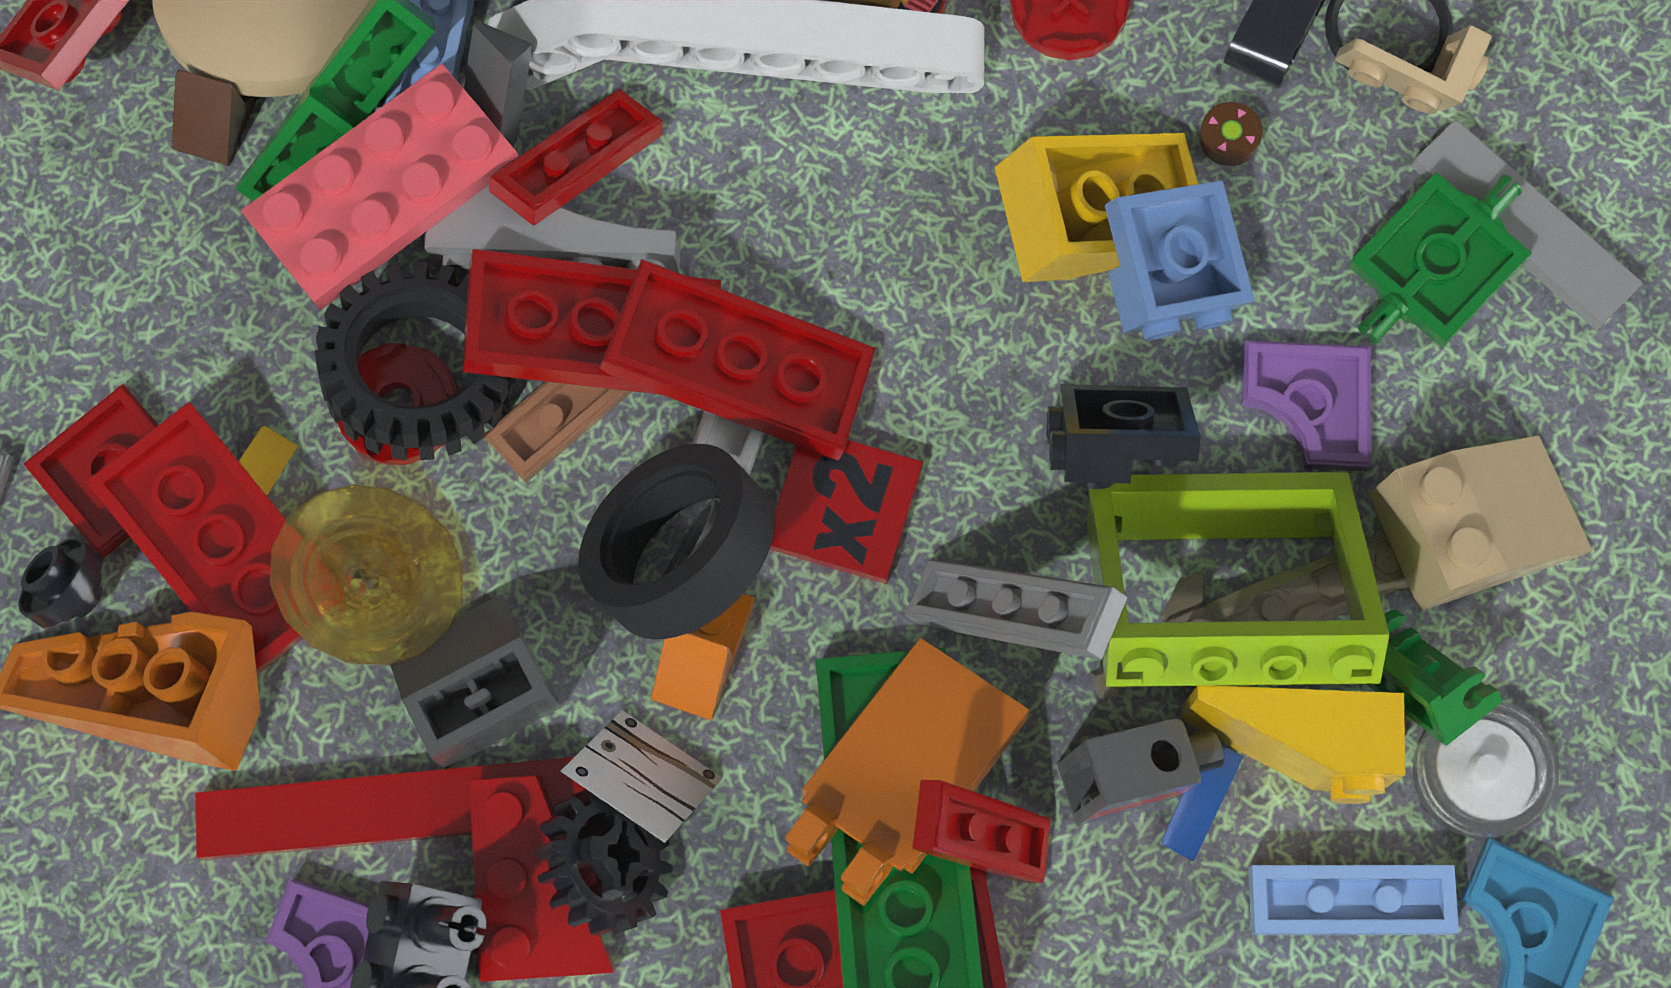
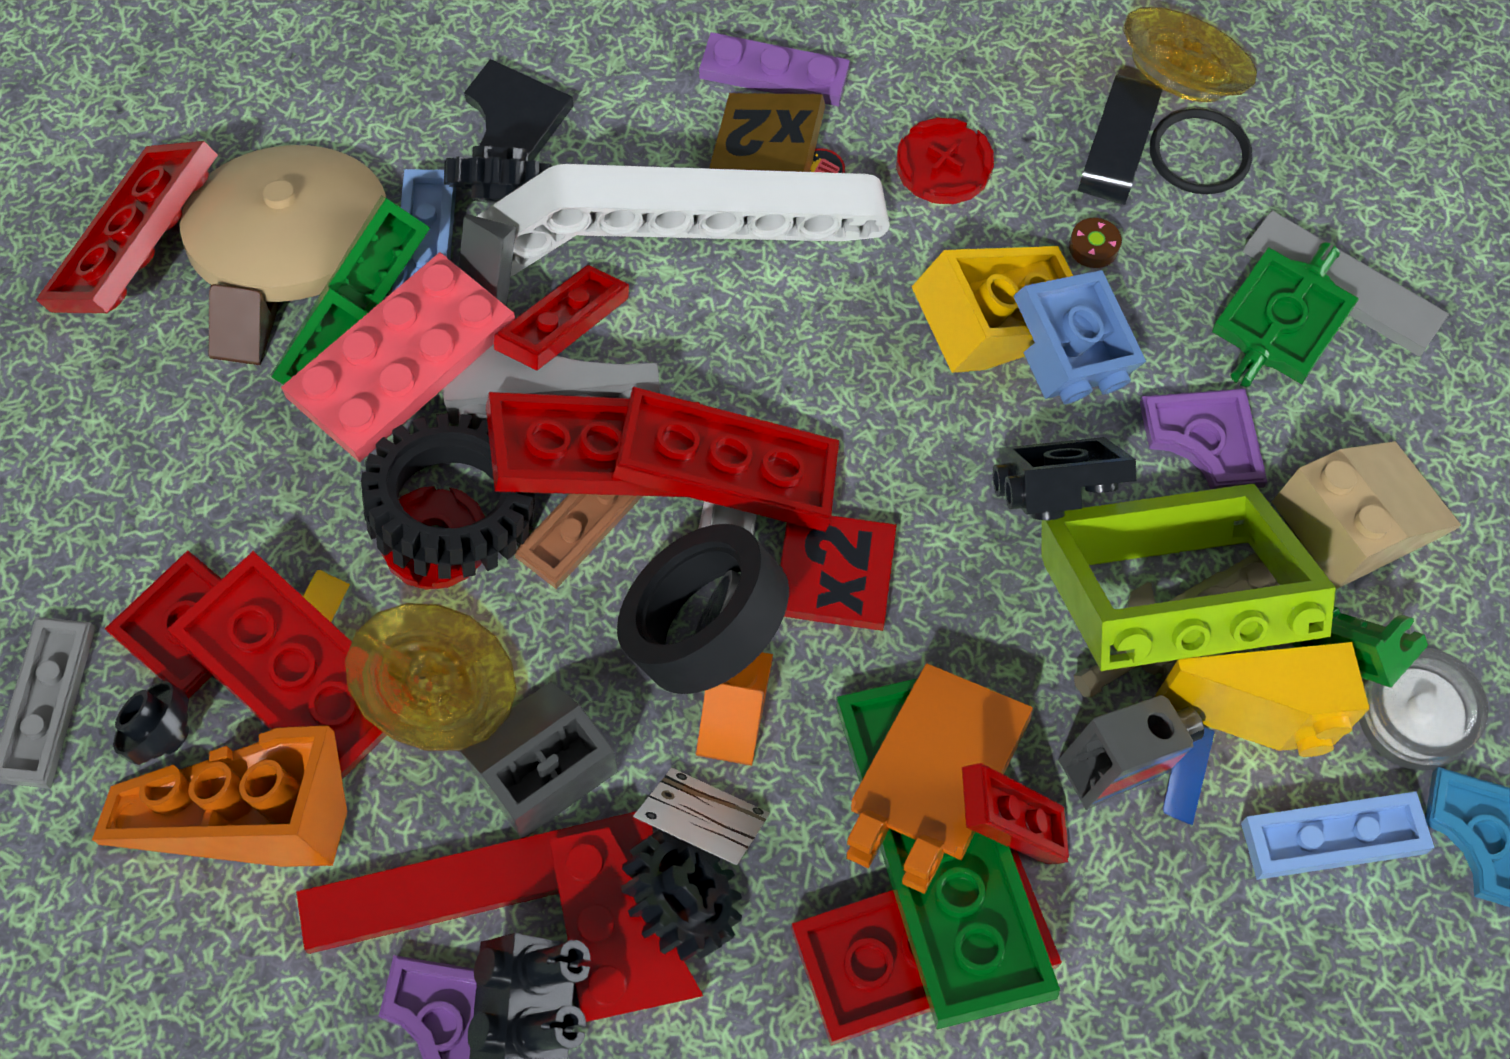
camera: 15 degrees left, 10 degrees down
(1017, 607) = (1009, 620): light grey tile -> none
(1454, 73) = (1240, 188): tan bracket -> none

